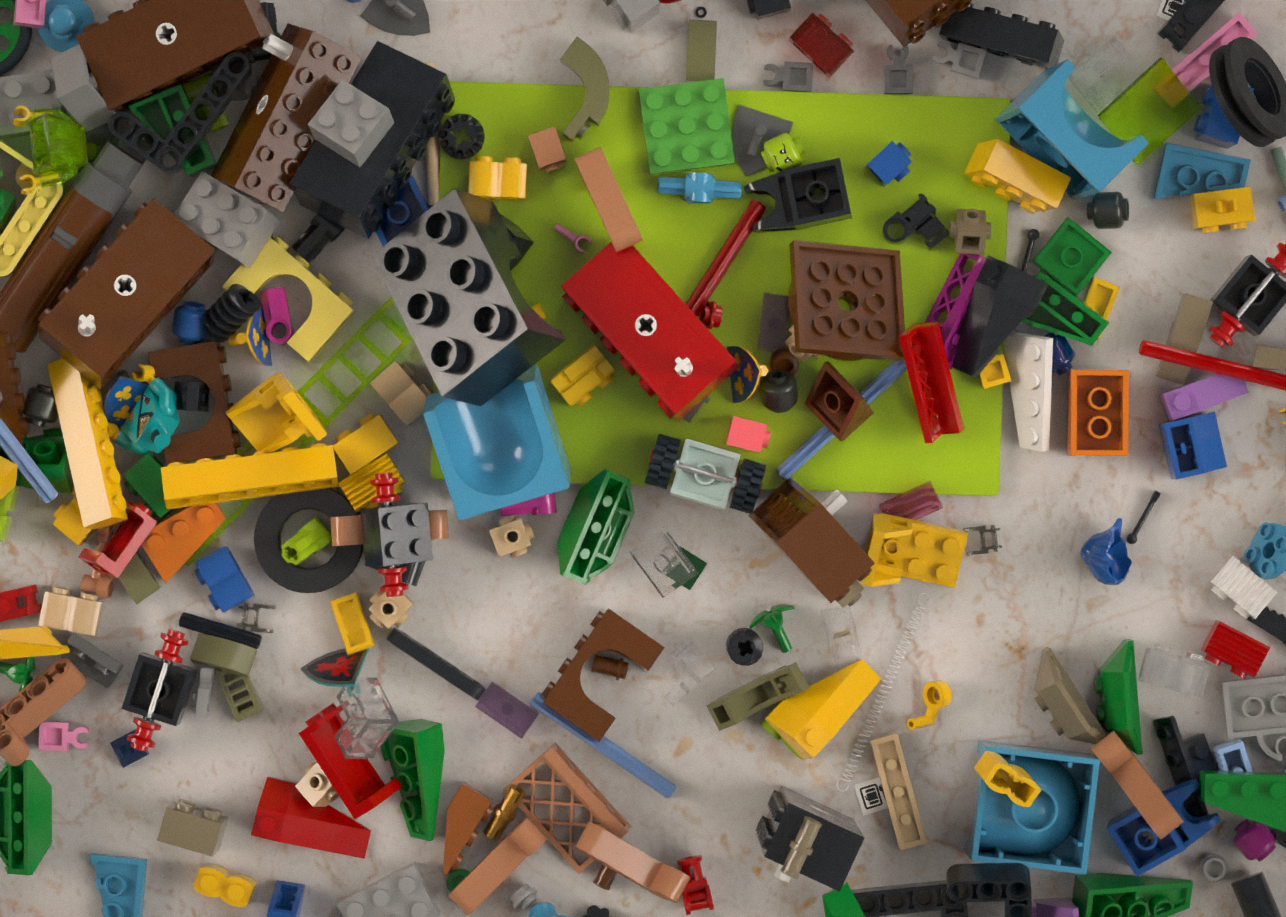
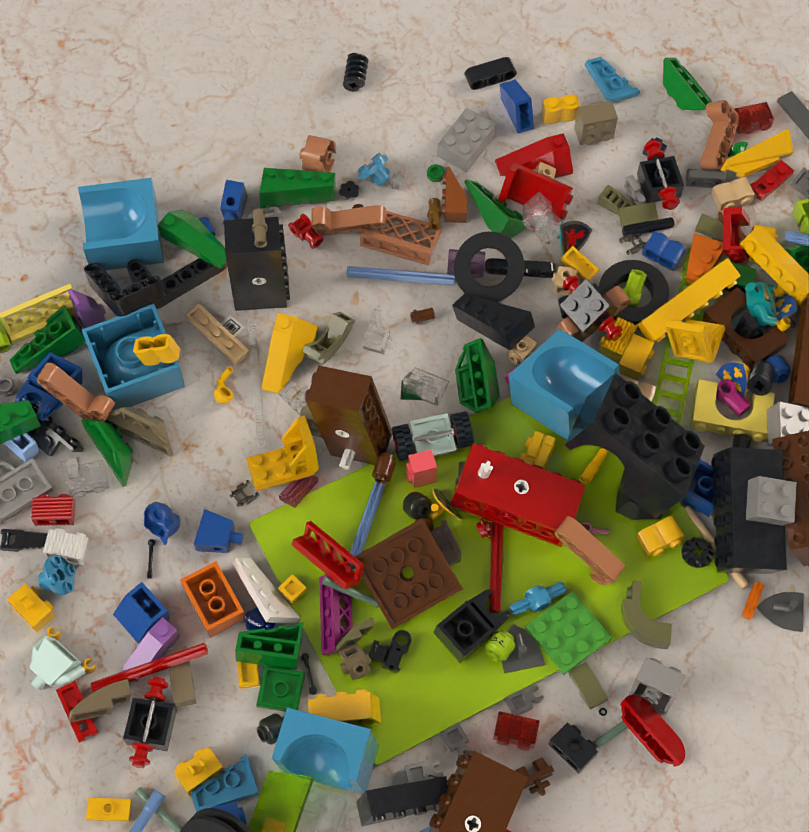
camera: 145 degrees right, 25 degrees down
(57, 736) = (695, 135): bright pink plate -> none
(431, 40) = (753, 600): none -> orange axle
(497, 865) = (417, 198): nougat beam -> none
(508, 649) = (494, 241): none -> black tyre
(524, 588) = (494, 320): none -> black wedge
(547, 149) = (642, 570): nougat brick -> none
(609, 634) = (430, 330): reddish brown arch -> none
(747, 657) = (352, 357): black piece -> none
(794, 462) = (384, 468): none -> reddish brown brick
(837, 403) = (376, 518): copper slope -> none
(890, 163) = (429, 677): blue brick -> none
(920, 317) = (350, 591): none -> sand green bar
(955, 264) = (355, 634): none -> olive slope
(996, 307) = (311, 624): black wedge -> none
(1046, 501) = (216, 534): none -> blue torso

